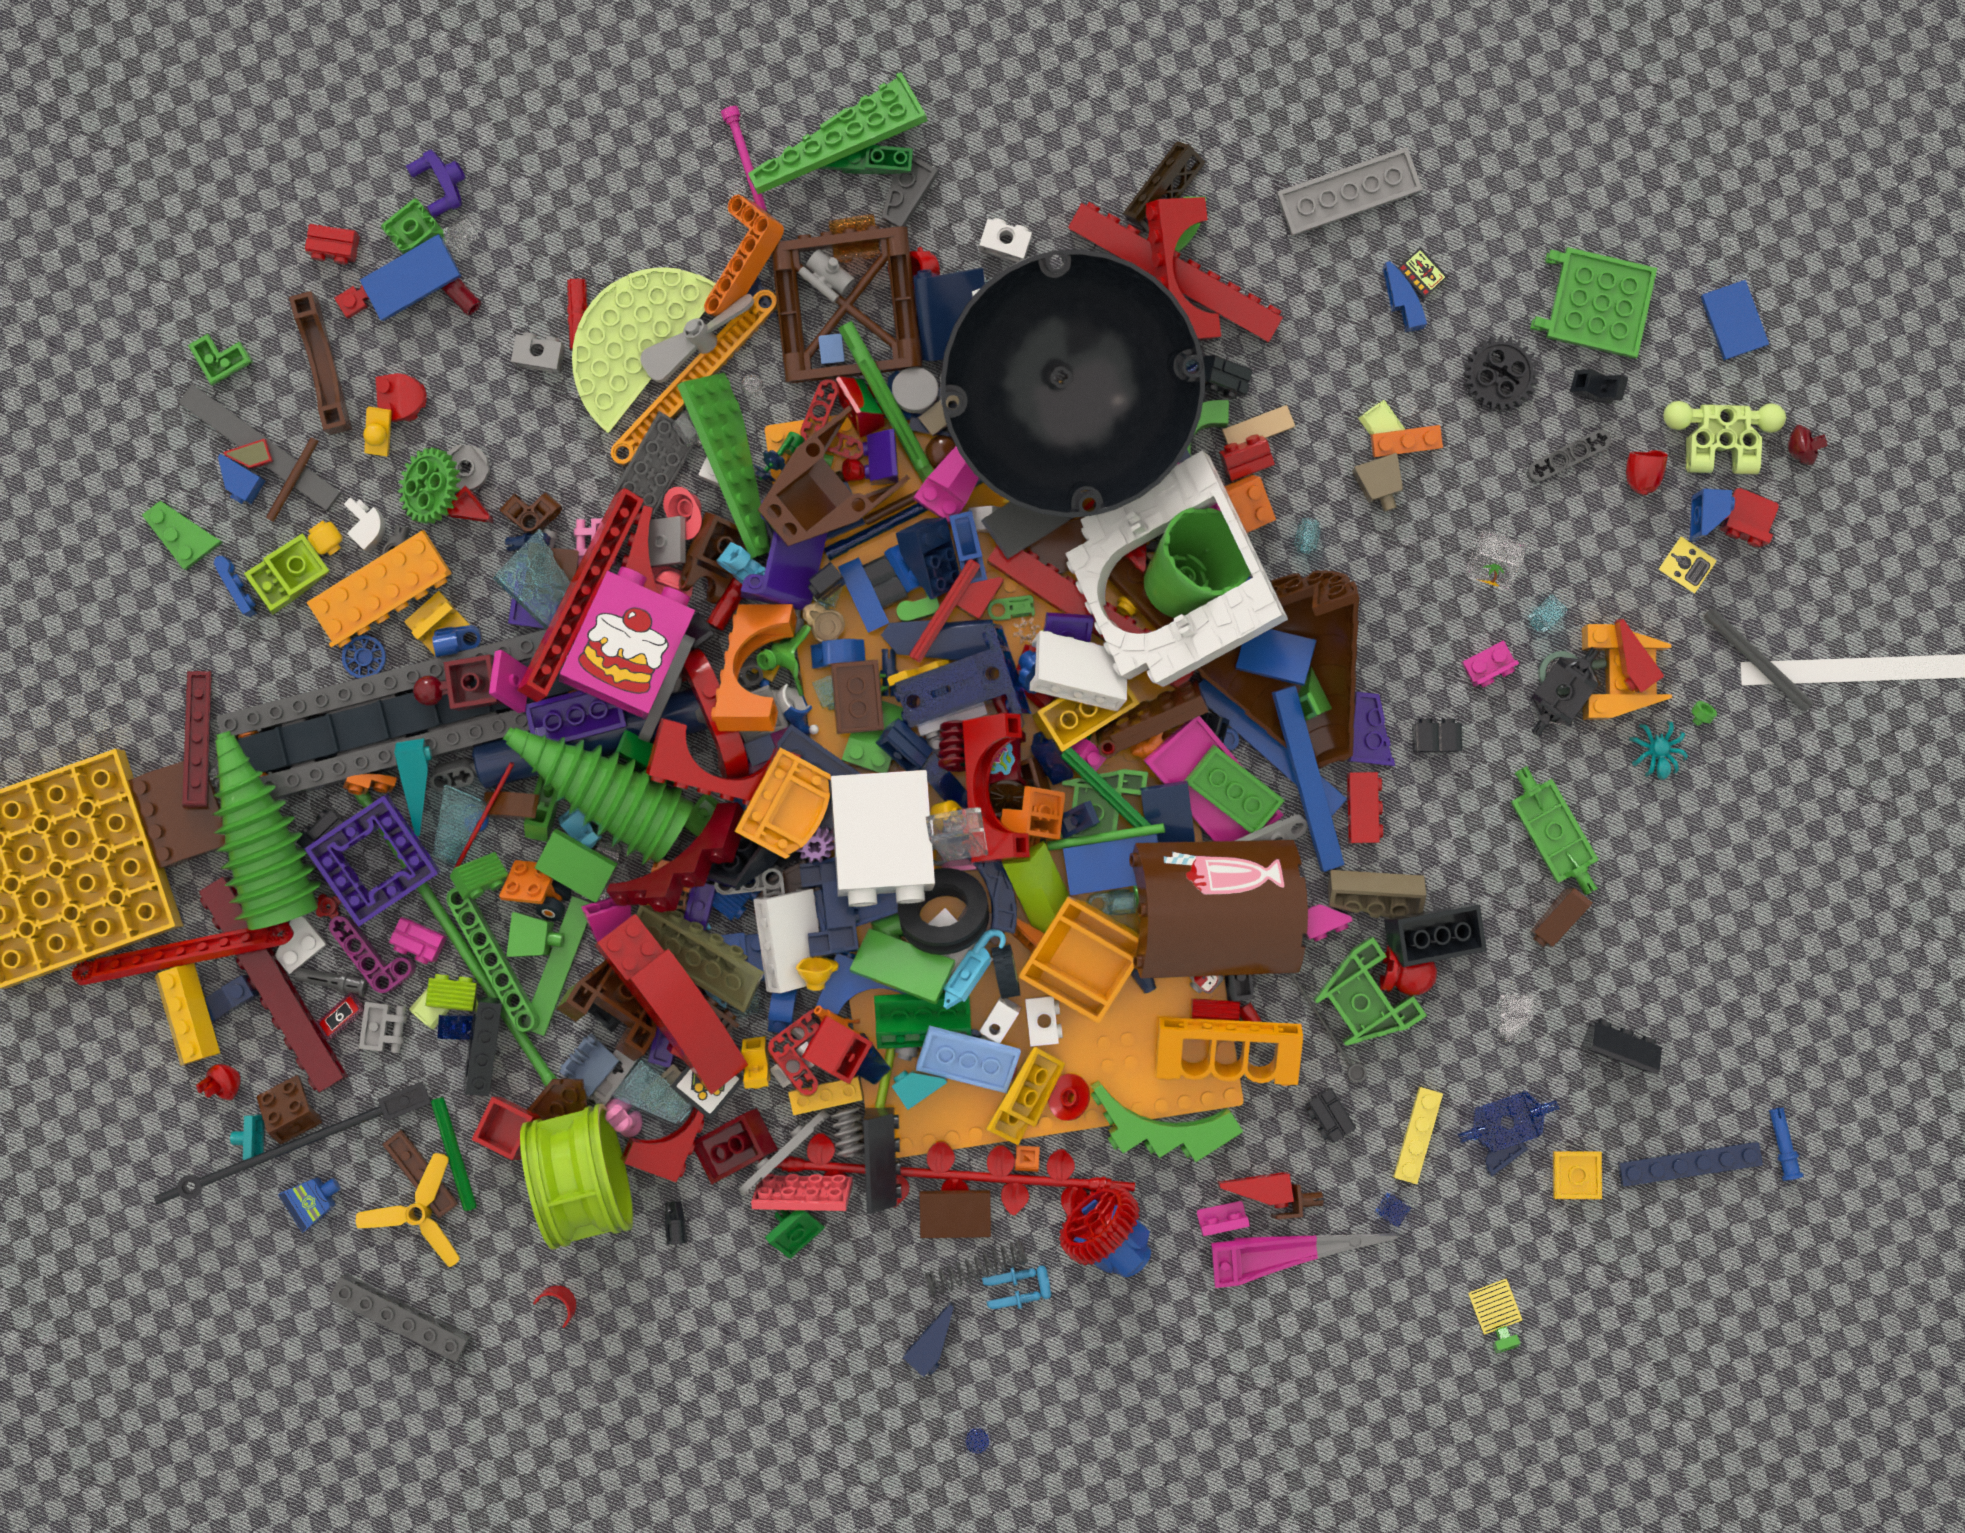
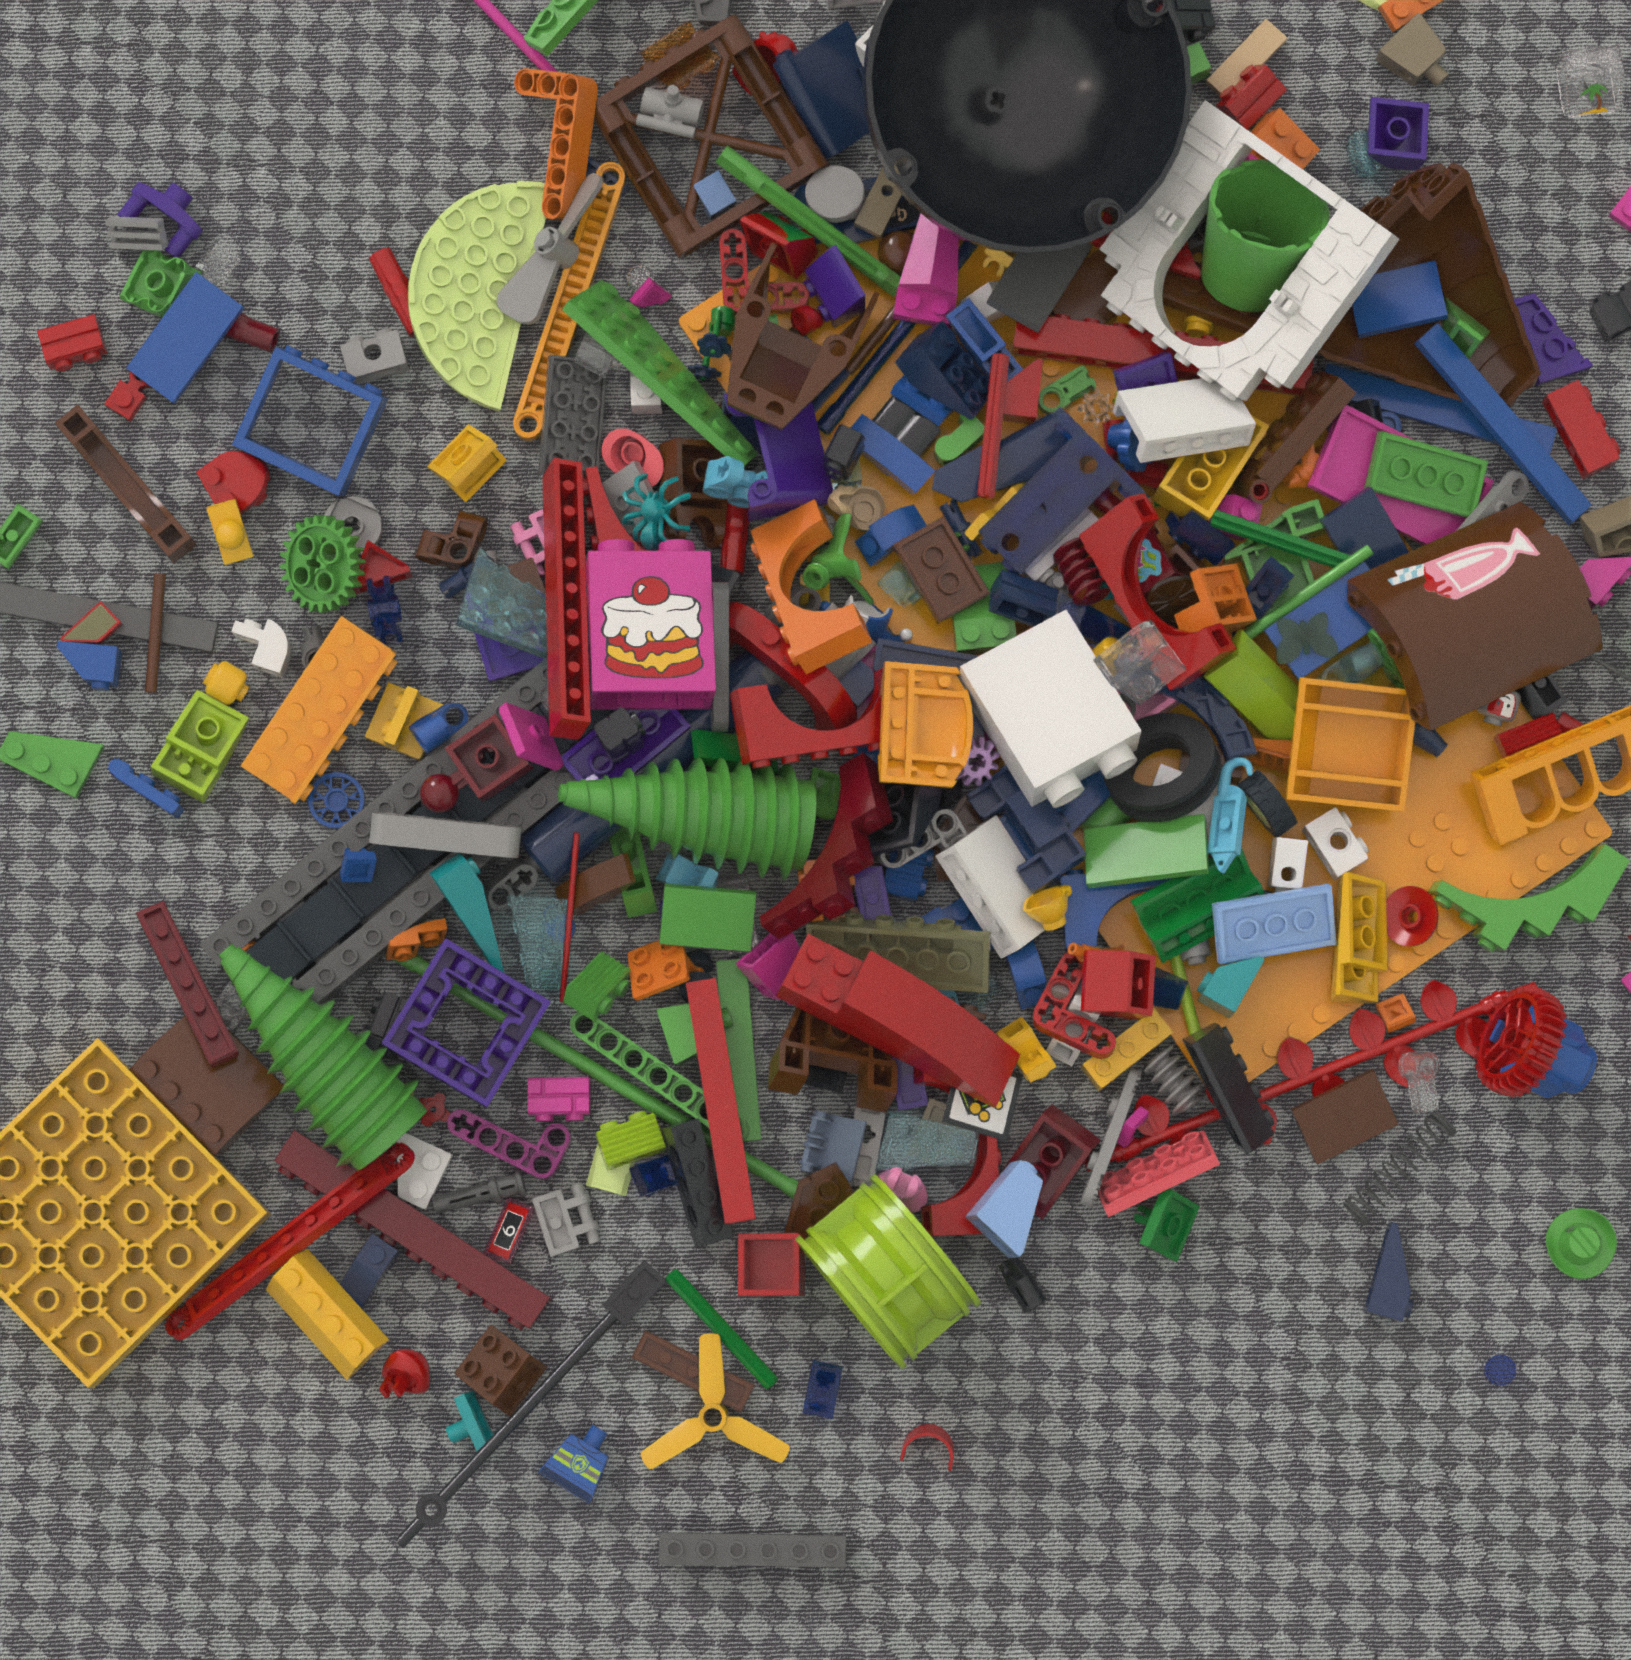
camera: 25 degrees left, 5 degrees down
(349, 714) = (358, 866): none -> blue tile
(412, 190) = (115, 234): none -> light grey tile
(418, 721) = (445, 834): none -> light grey beam
(443, 403) = (344, 380): none -> blue window
(457, 539) = (384, 610): none -> clear blue pin
(501, 1230) = (822, 1389): none -> clear blue slope
(523, 999) = (720, 1101): none -> red tile
(566, 460) = (467, 462): none -> yellow bracket
(570, 711) = (620, 734): none -> black brick
(676, 560) = (654, 511): none -> teal animal
(687, 1168) = (1008, 1208): none -> light blue slope
(753, 399) = (650, 294): none -> dark pink tile
(803, 1150) = (1130, 1126): none -> dark pink tile
(1018, 1299) = (1447, 1158): dark azure piece -> none
(1022, 1209) = (1420, 1071): none -> clear piece
(1076, 1380) = (1581, 1243): none -> bright green hat
(1088, 867) = (1305, 635): none -> clear green piece
(1337, 533) = (1398, 133): none -> dark purple slope

